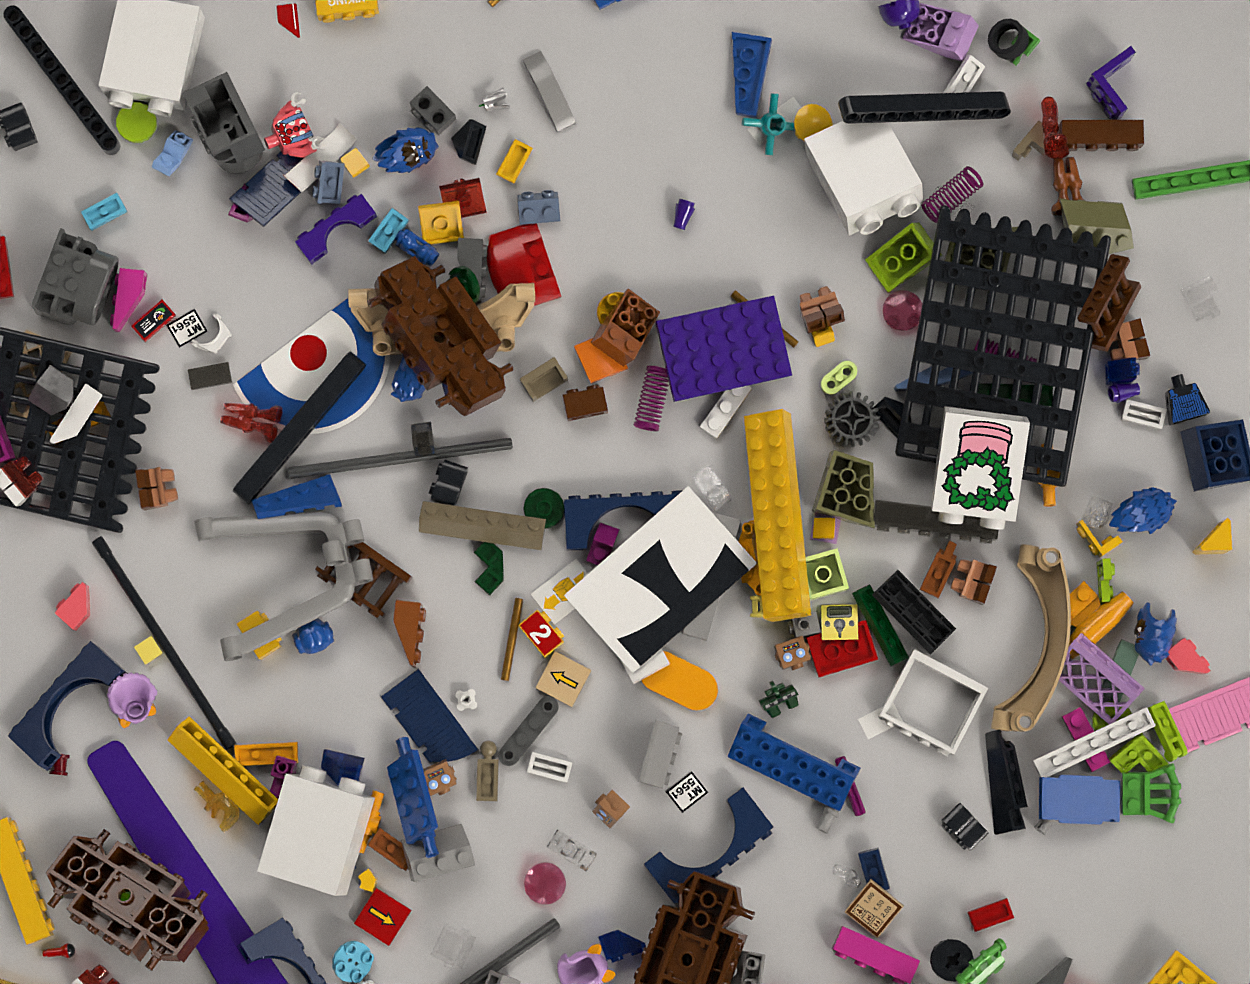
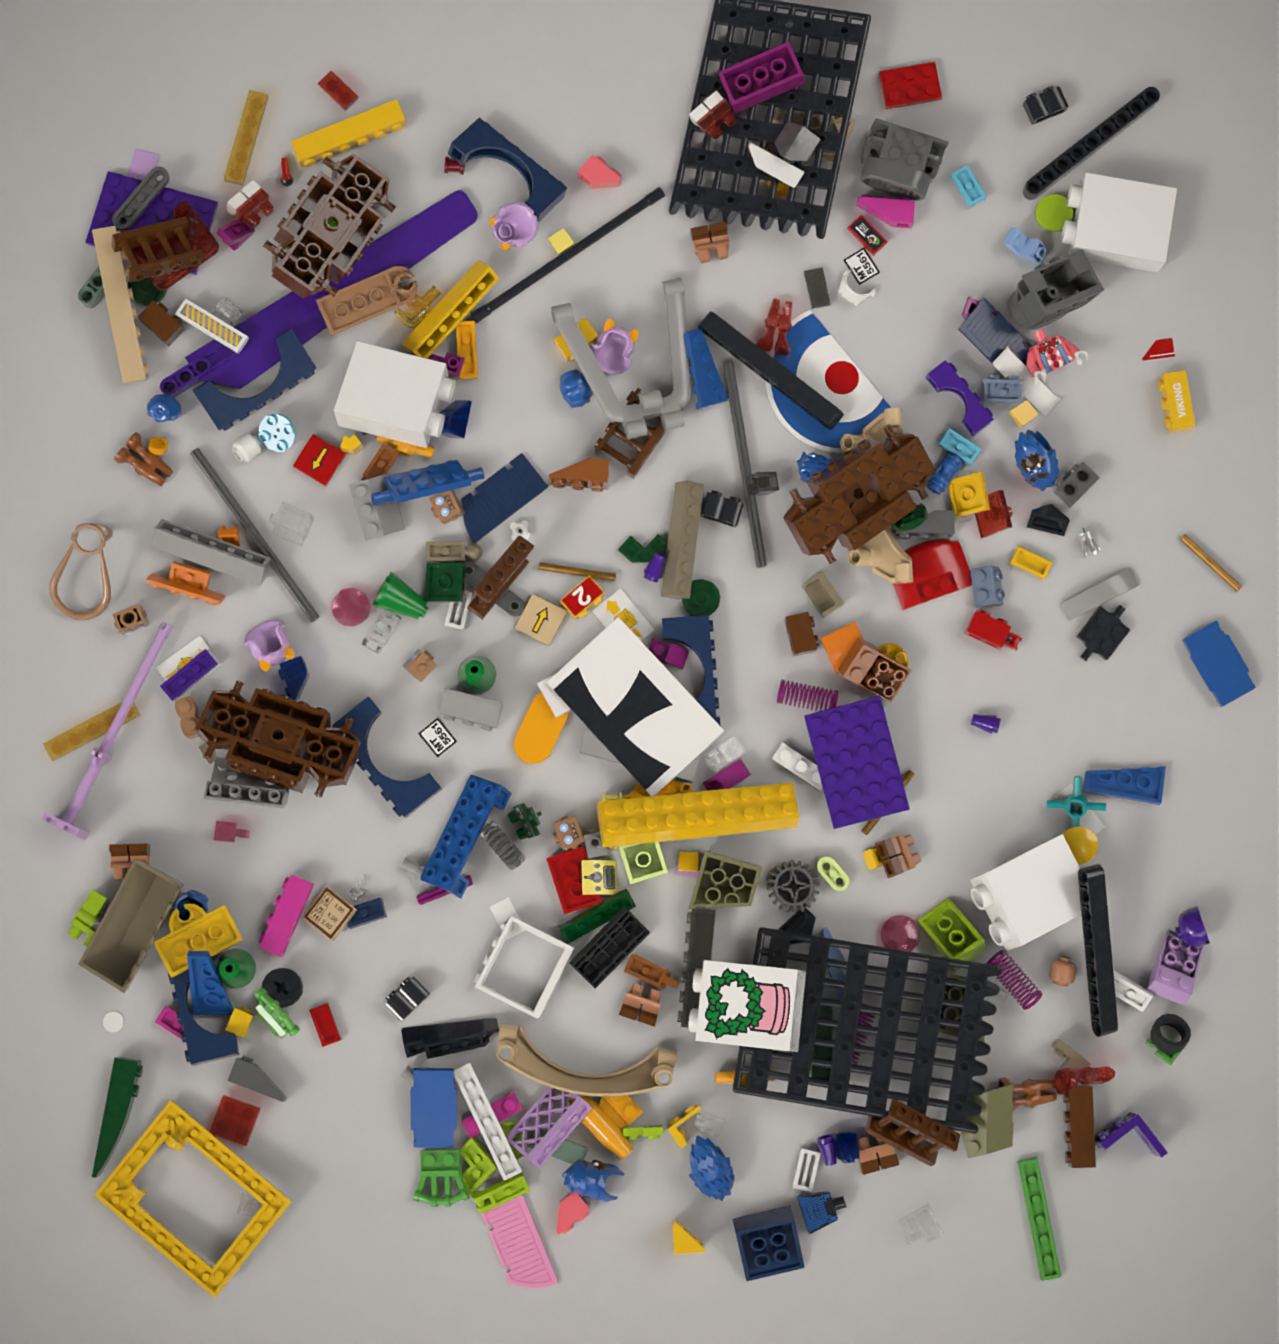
camera: 85 degrees right, 0 degrees up
(207, 861) = (367, 299): none -> medium nougat plate
(270, 593) = (614, 348): none -> lavender hair
(510, 555) = (654, 569): none -> dark purple cone
(520, 718) = (500, 577): none -> reddish brown fence
(521, 781) = (444, 582): none -> dark green tile
(537, 830) = (399, 598): none -> green cone
(586, 205) = (991, 631): none -> red brick
(590, 90) = (1102, 633): none -> black plate
(620, 759) = (476, 682): none -> green cone
(737, 484) = (728, 777): none -> magenta slope
(805, 722) = (502, 845): none -> dark grey gear
(943, 145) = (1063, 971): none -> nougat head

